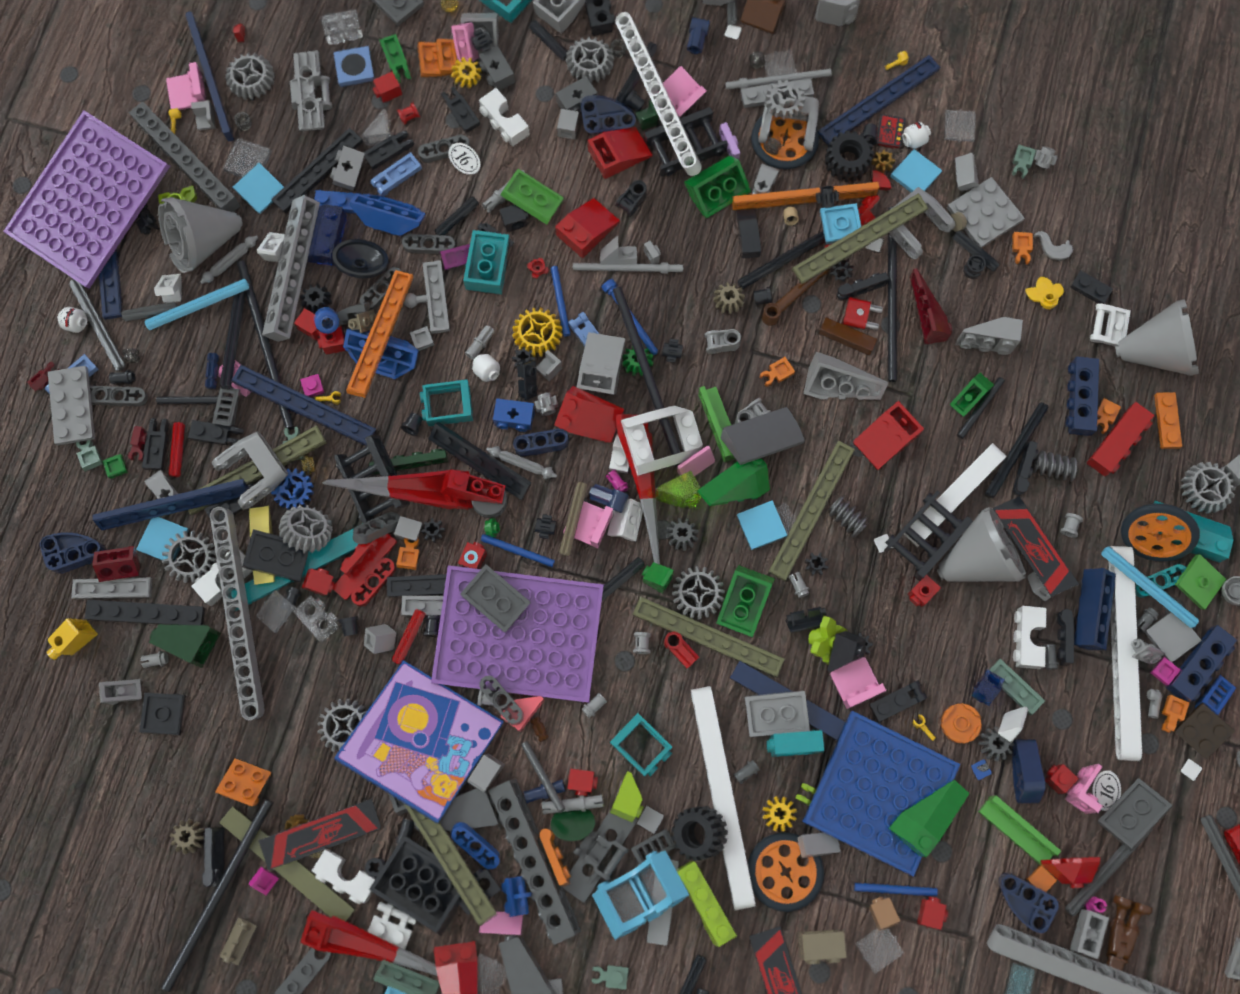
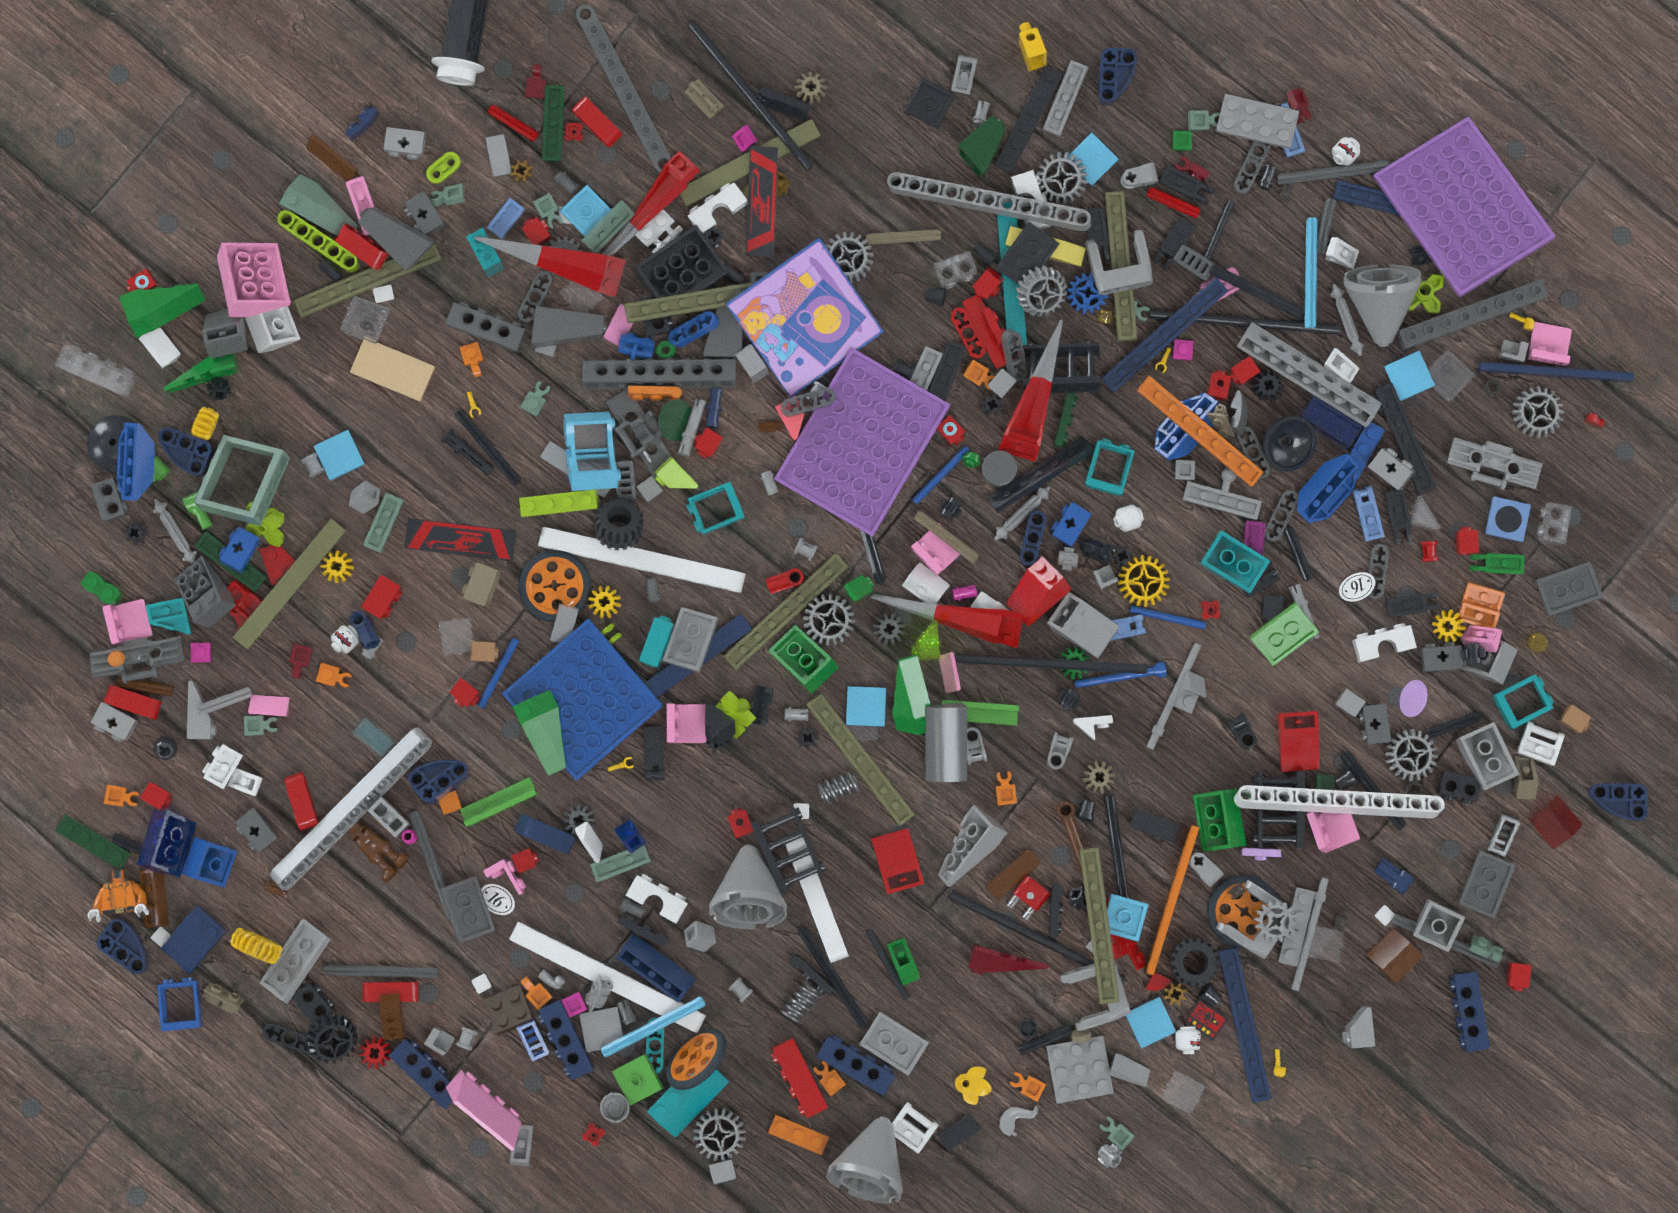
camera: 110 degrees right, 10 degrees up
(116, 564) = (1083, 110): dark red brick -> none
(170, 504) = (1117, 179): dark blue tile -> none
(211, 370) = (1238, 262): dark blue axle -> none
(243, 782) = (837, 152): orange hinge -> none
(275, 611) = (977, 236): clear piece -> none
(303, 681) = (901, 237): none -> dark tan axle
(327, 326) = (1235, 386): blue head -> none
(379, 638) = (912, 318): light grey panel -> none
(408, 636) = (902, 344): red axle -> none
(412, 424) = (1103, 427): black piece -> none
(472, 488) = (1012, 456): red slope -> none
(480, 342) = (1157, 523): light grey axle -> none
(495, 598) = (900, 433): dark grey plate -> none
(502, 870) = (661, 345): none -> green plate
(540, 80) = (1413, 698): none -> lavender sticker
(543, 777) = (726, 411): dark grey bar -> none
(586, 227) = (1233, 676): red slope -> none
(604, 108) = (1347, 745): dark blue beam -> none
(611, 498) = (947, 580): dark blue piece -> none
(640, 446) = (990, 624): white wedge -> none
(652, 252) = (1177, 725): light grey plate -> none
(685, 326) = (1087, 724): none -> white slope
(790, 211) = (1161, 879): tan piece -> none
(827, 196) = (1156, 915): black gear -> none
(961, 723) = (610, 800): orange tile -> none
(981, 769) = (563, 798): blue sticker -> none
(996, 335) = (949, 1010): light grey slope -> none
(1035, 546) = (736, 943): black sticker -> none
(1046, 372) = (894, 1043): none -> light grey plate
(1073, 870) = (446, 829): red slope -> none

